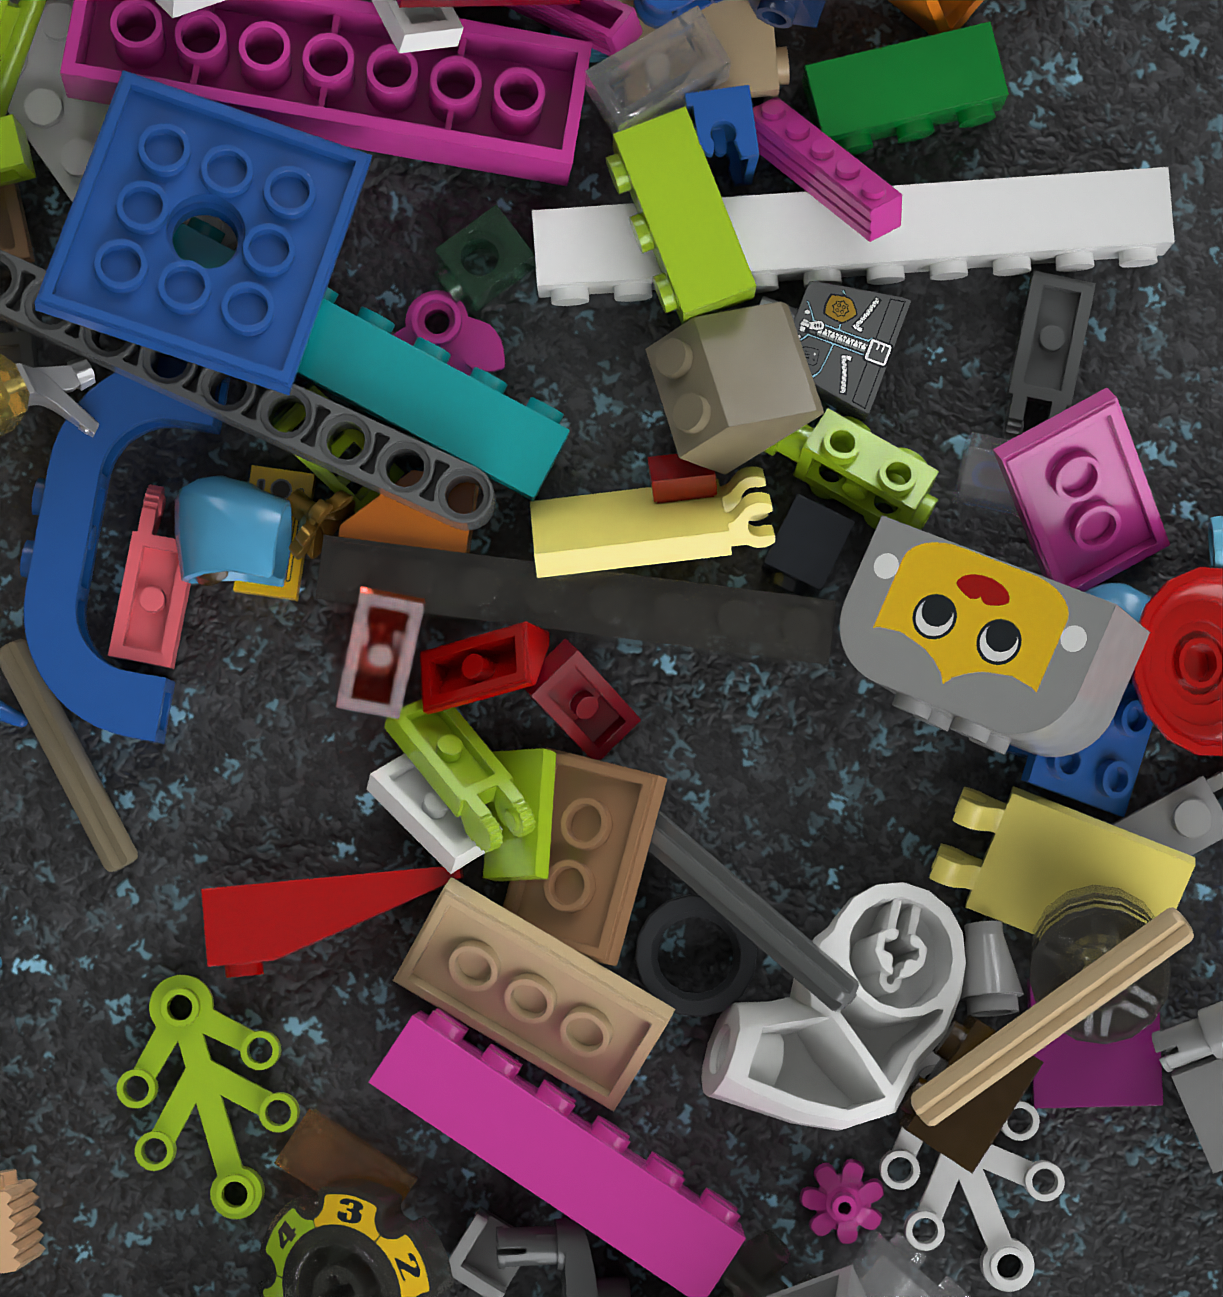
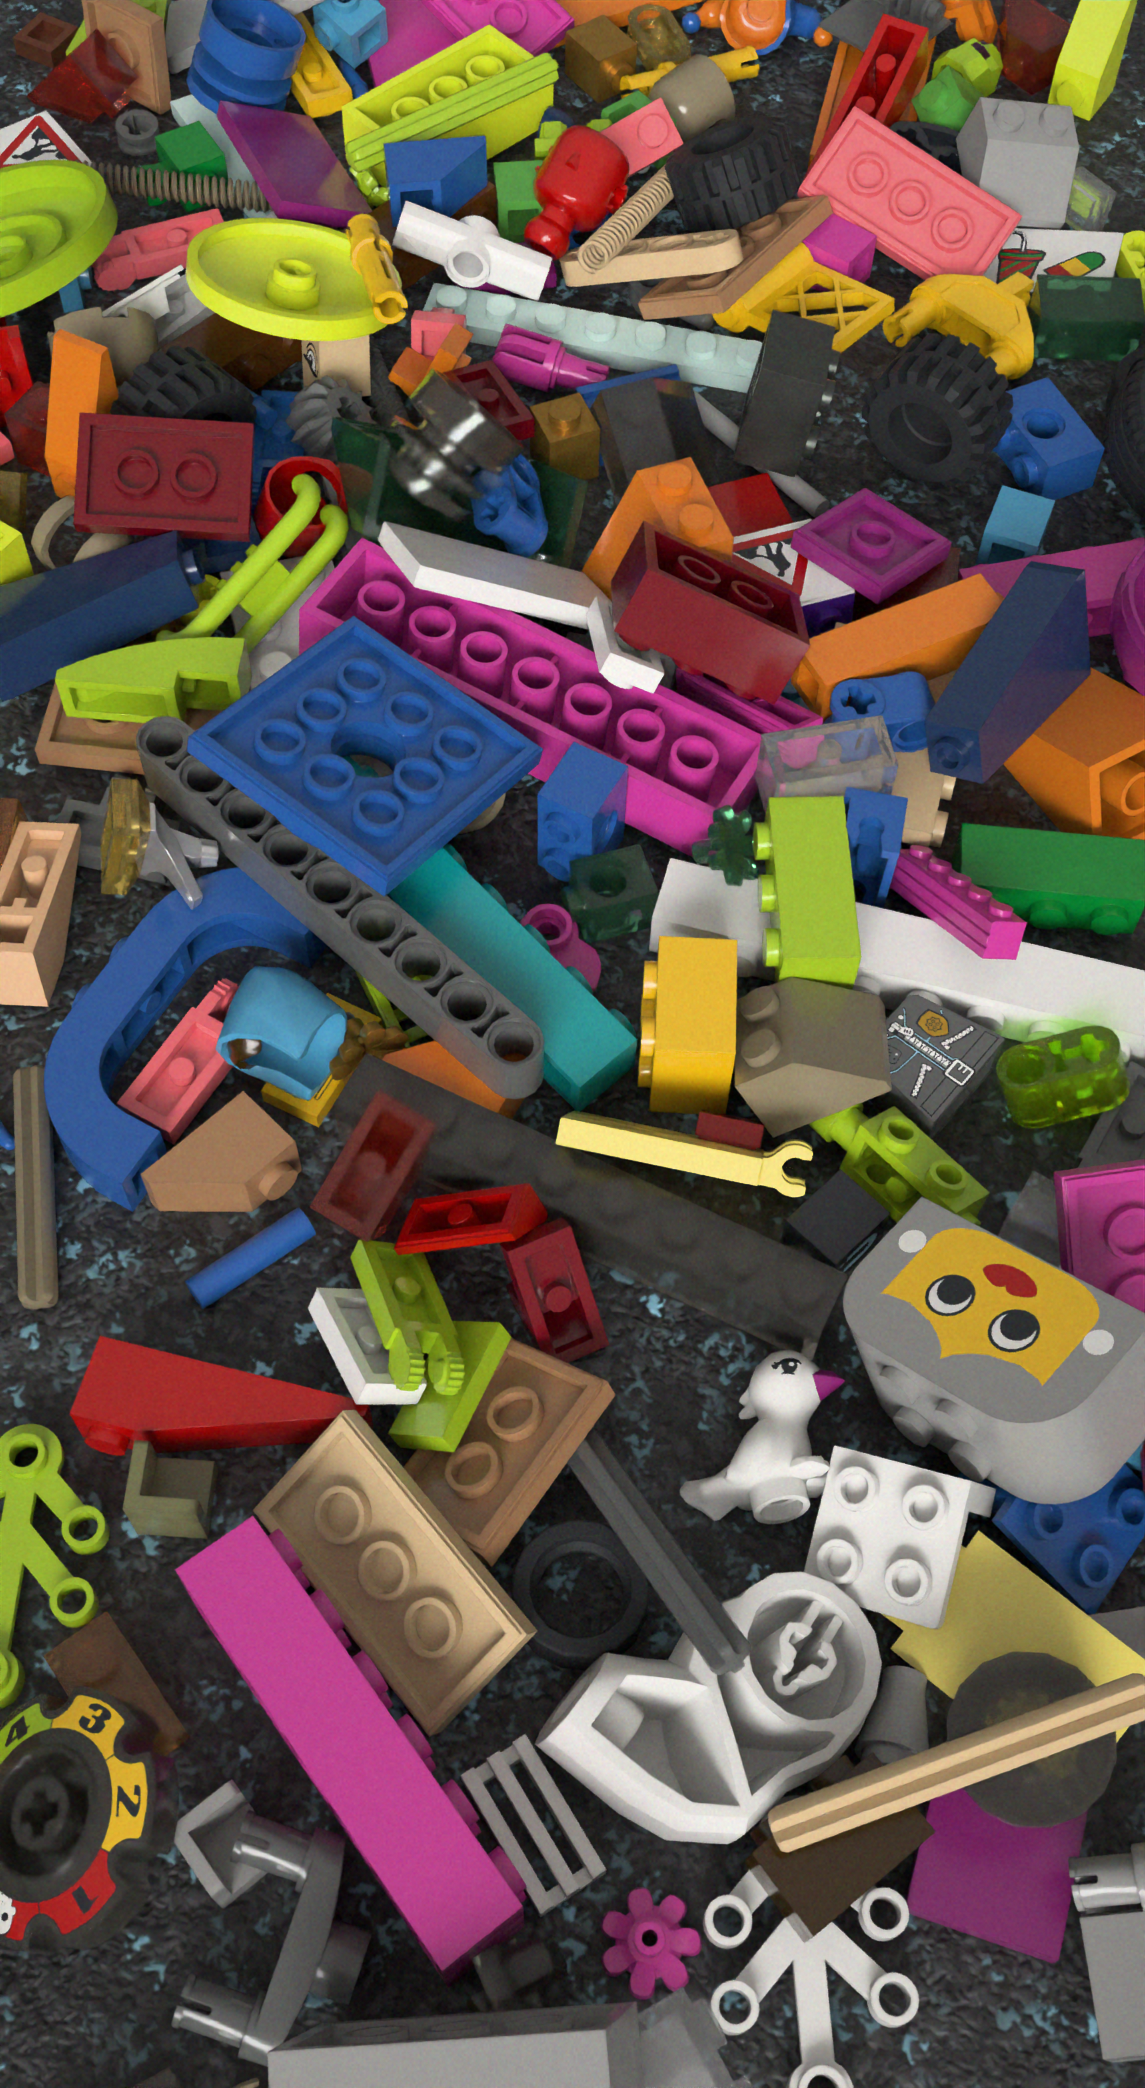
camera: 15 degrees right, 25 degrees down
(236, 675) = (226, 1163): none -> medium nougat slope
(292, 754) = (250, 1258): none -> blue piece
(318, 992) = (169, 1494): none -> olive panel
(427, 192) = (580, 809): none -> blue brick
(587, 188) = (728, 846): none -> clear green plant
(614, 390) = (689, 1025): none -> yellow brick
(763, 1182) = (499, 1766): none -> white tile
(821, 781) = (774, 1461): none -> white animal
(940, 815) = (893, 1534): none -> white bracket
(976, 338) = (1063, 1076): none -> clear neon green beam

